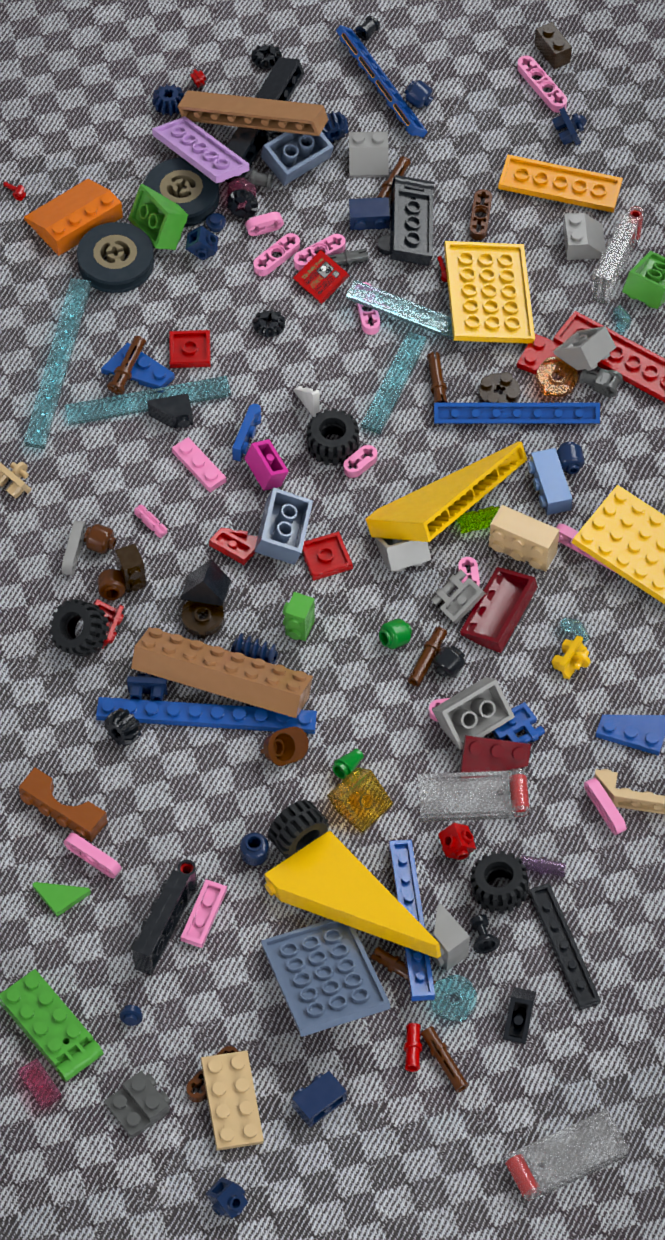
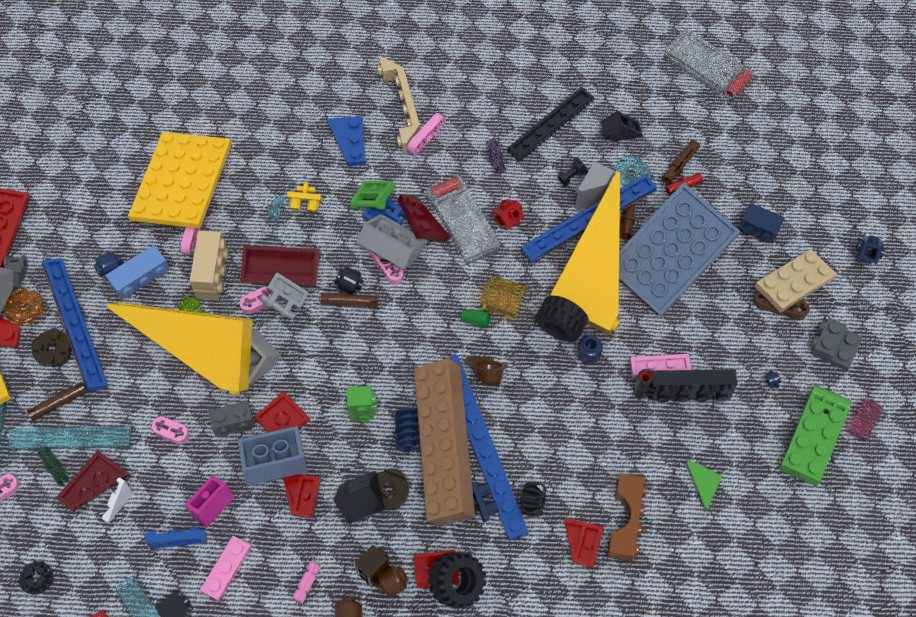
camera: 115 degrees left, 5 degrees up
(60, 759) = (583, 541): none -> red wing
(92, 855) = (657, 472): bright pink beam -> none
(332, 423) = (148, 445): black tyre -> none
(340, 385) = (91, 481): none -> dark red wing
(342, 510) = (231, 419): none -> dark grey brick
(370, 361) = (53, 466): none -> clear green pin
(395, 633) = (340, 329): green head -> none
(499, 897) = (532, 160): black tyre -> none
(545, 724) = (372, 190): none -> bright green plate

